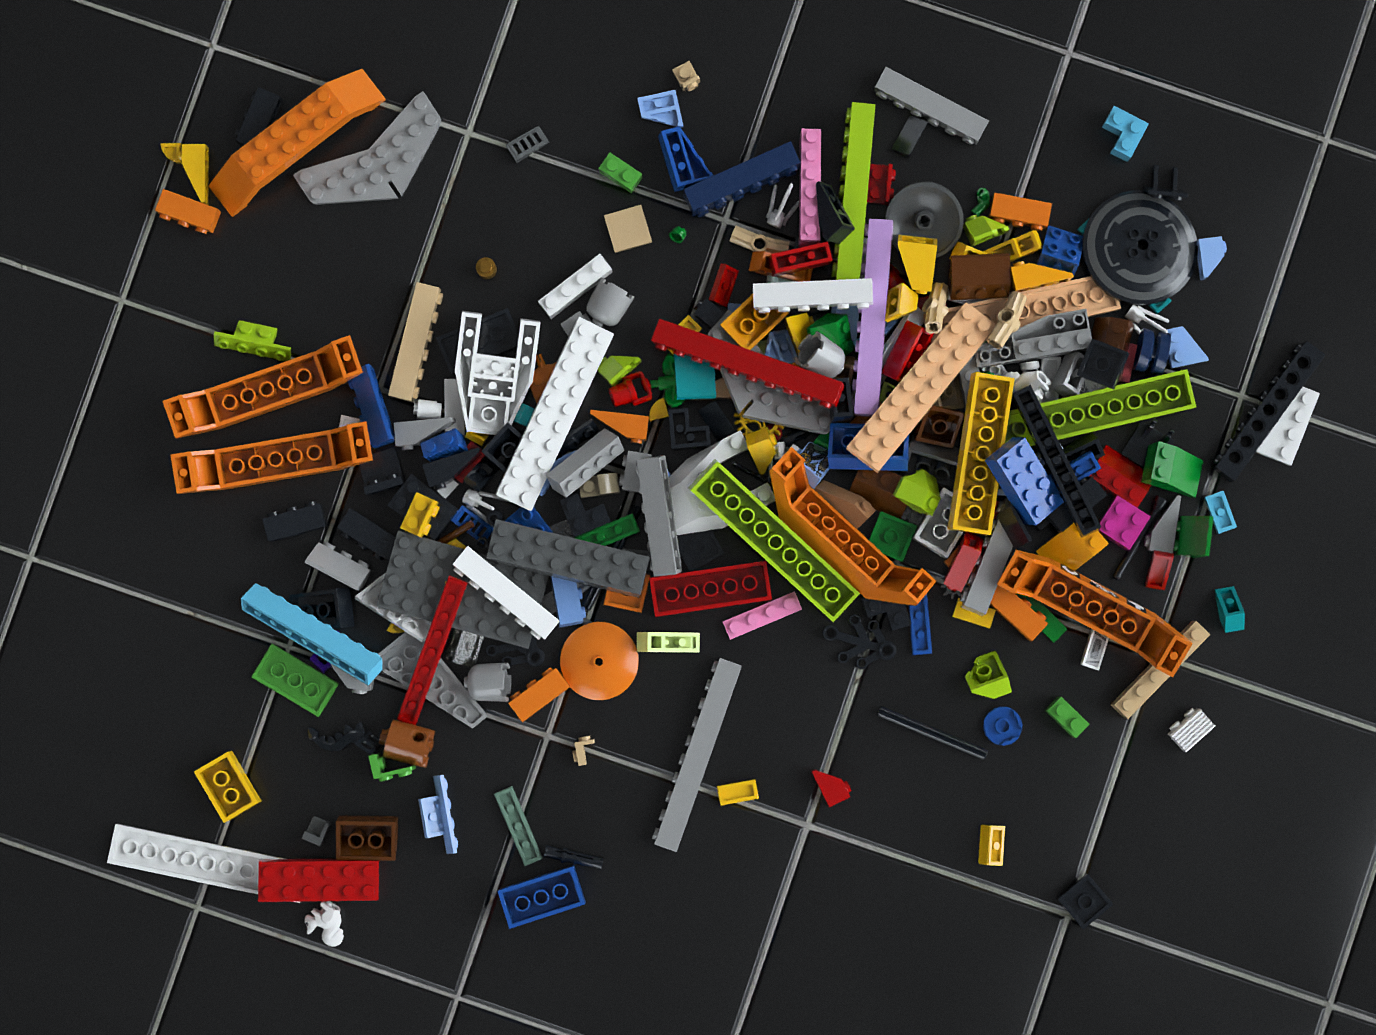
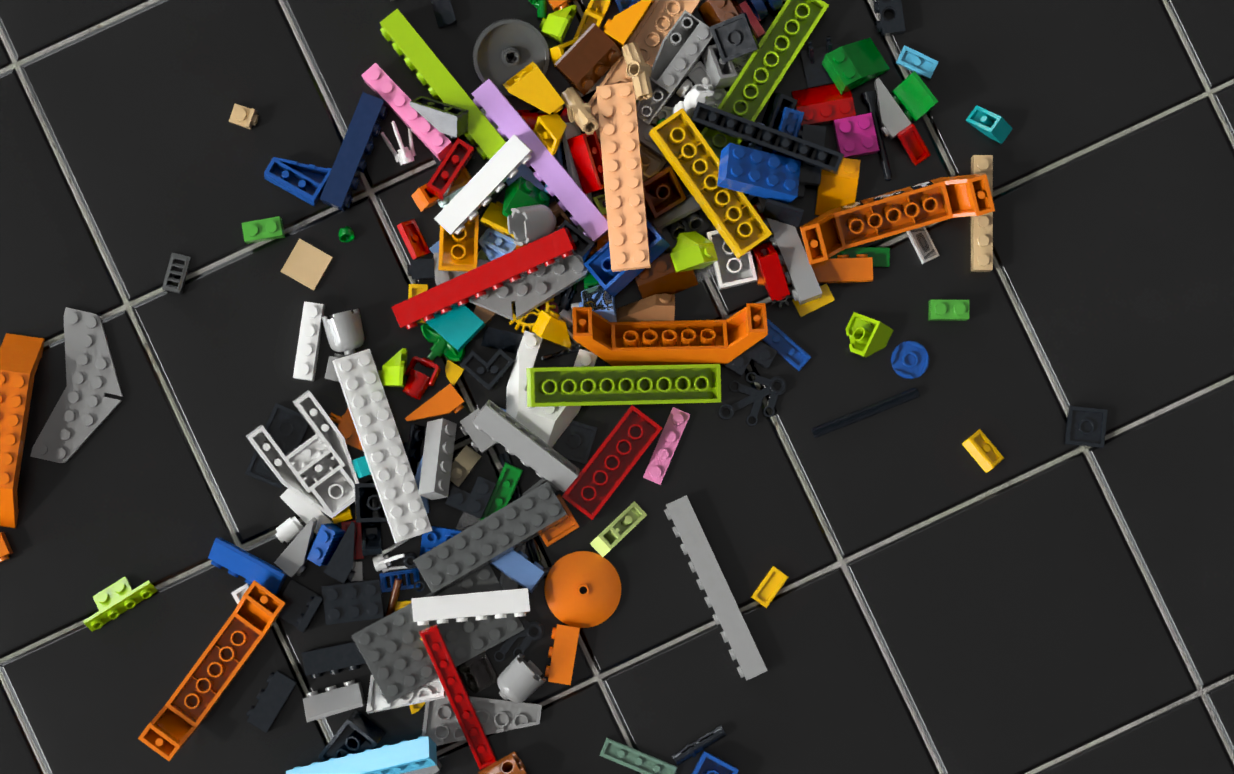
camera: 45 degrees left, 0 degrees up
(264, 390) = (159, 628): orange slope -> none
(415, 341) = (233, 491): tan brick -> none
(419, 515) = (356, 609): yellow bracket -> none
(486, 268) = (233, 389): pearl gold brick -> none
(579, 754) = (632, 668): tan bracket -> none
(661, 108) = (247, 156): light blue wing -> none
(747, 239) = (398, 190): tan piece -> none
(832, 787) = (832, 519): red slope -> none
(880, 184) = (454, 61): red bracket -> none
(892, 536) = (703, 301): green plate -> none
(1191, 729) = (1043, 234): white brick -> none

